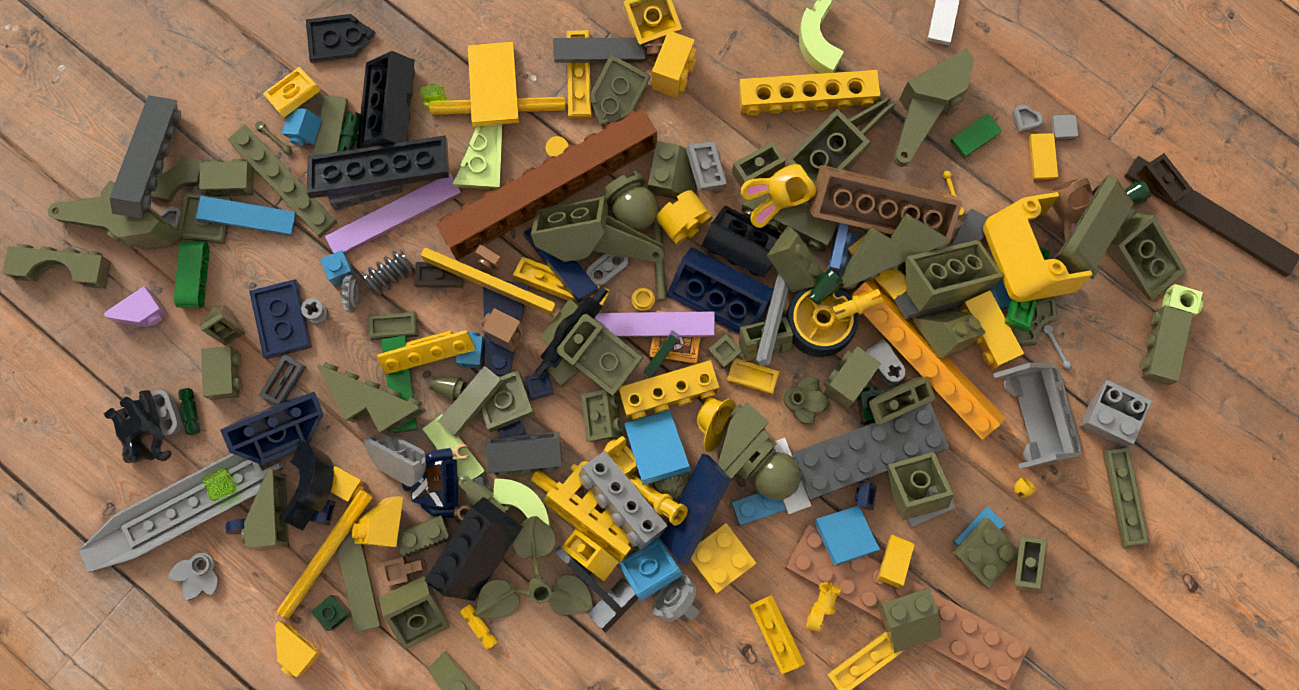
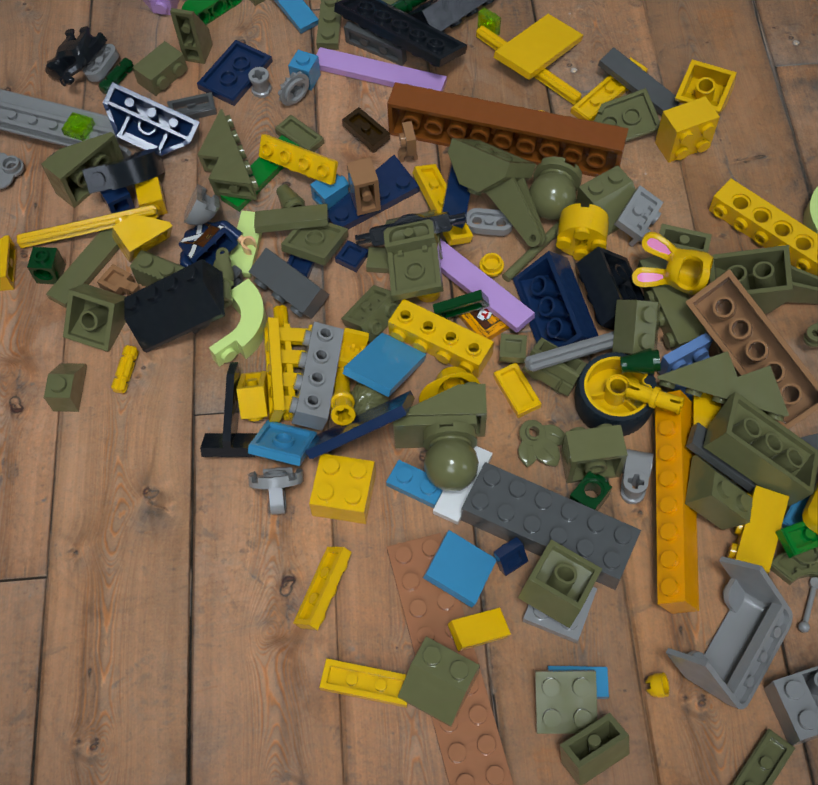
camera: 50 degrees right, 15 degrees down
(387, 272) = (332, 98): dark grey piece -> none
(482, 160) = (480, 83): yellowish green wing -> none
(489, 282) = (392, 155): yellow tile -> none
(566, 598) = (160, 363): olive plant -> none
(823, 606) = (380, 602): yellow connector -> none
(901, 399) = (616, 502): olive slope -> none

